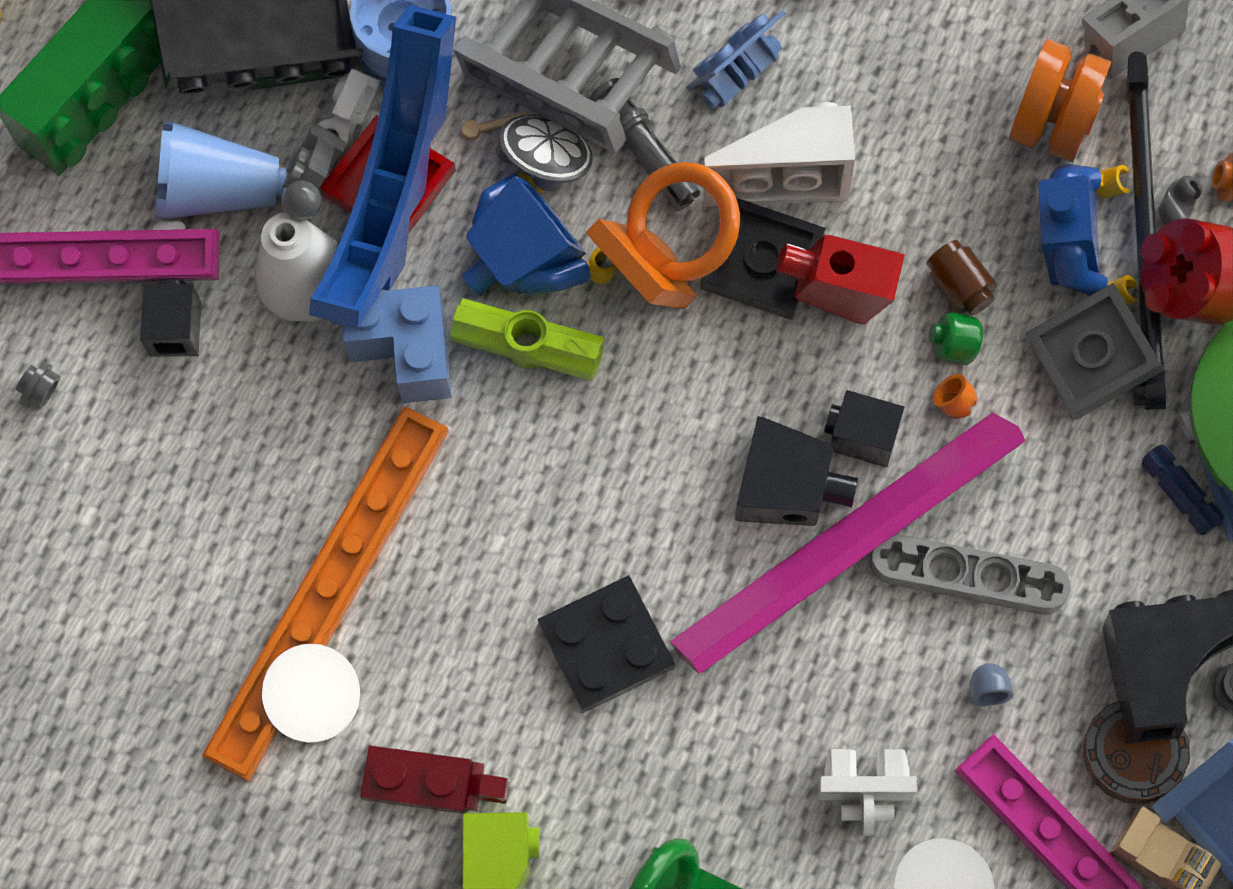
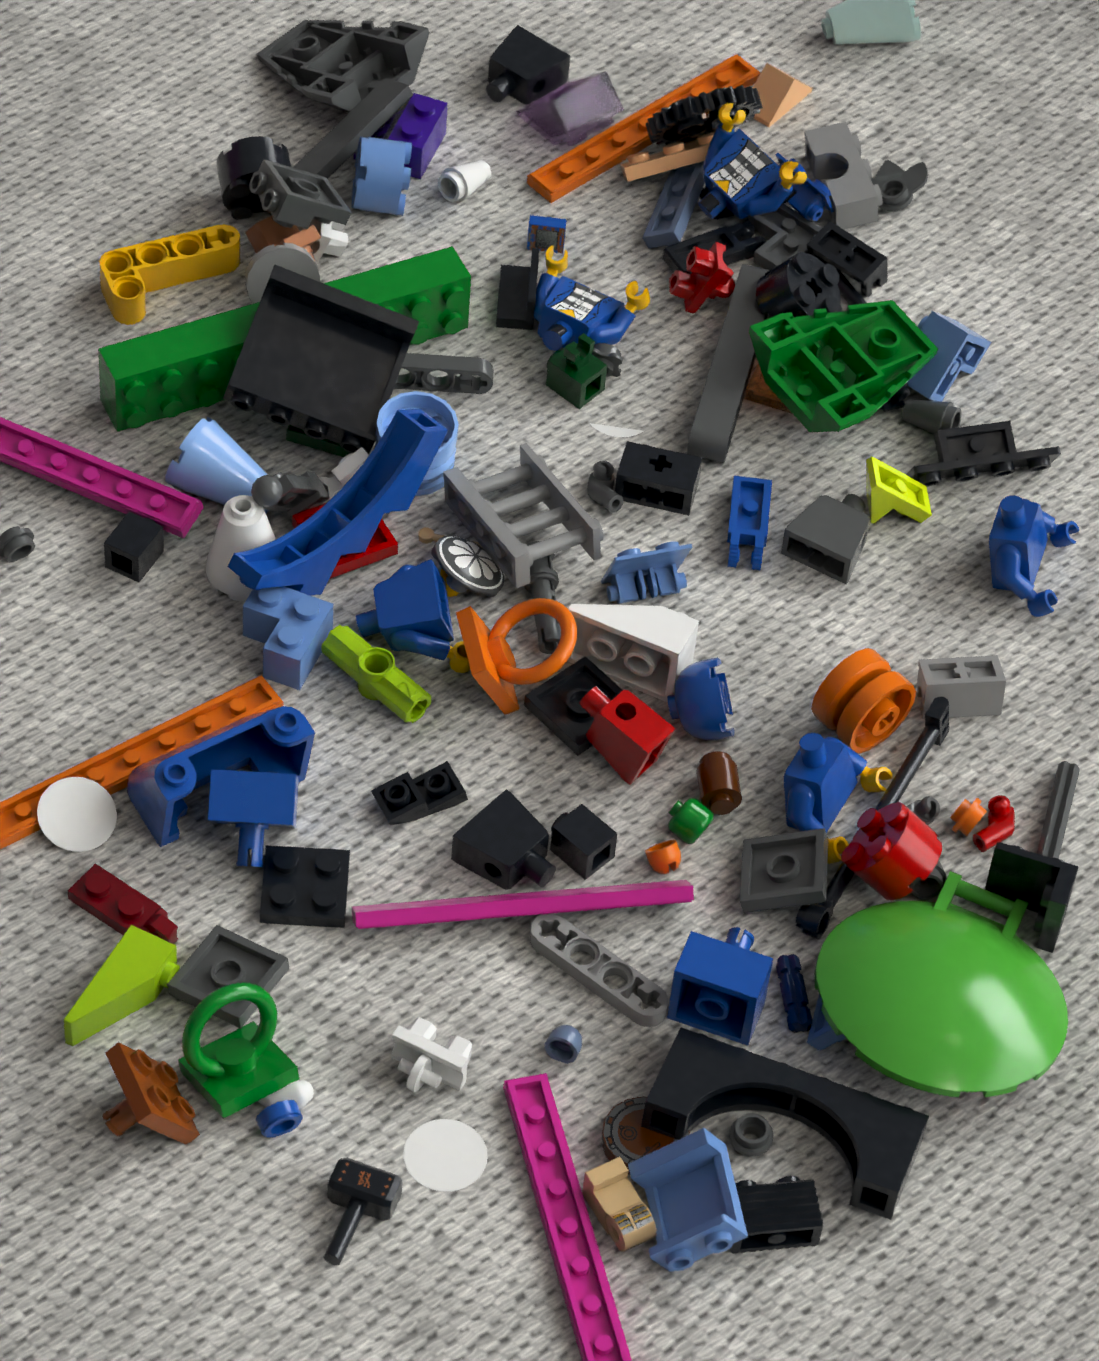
camera: 20 degrees right, 20 degrees down
(386, 603) = (267, 741): none -> blue windscreen
(504, 587) = (253, 804): none -> blue brick
(597, 808) = (227, 960): none -> dark grey plate
(658, 462) = (415, 798): none -> black slope
(890, 189) = (702, 701): none -> blue cylinder
(1120, 533) = (720, 985): none -> blue brick

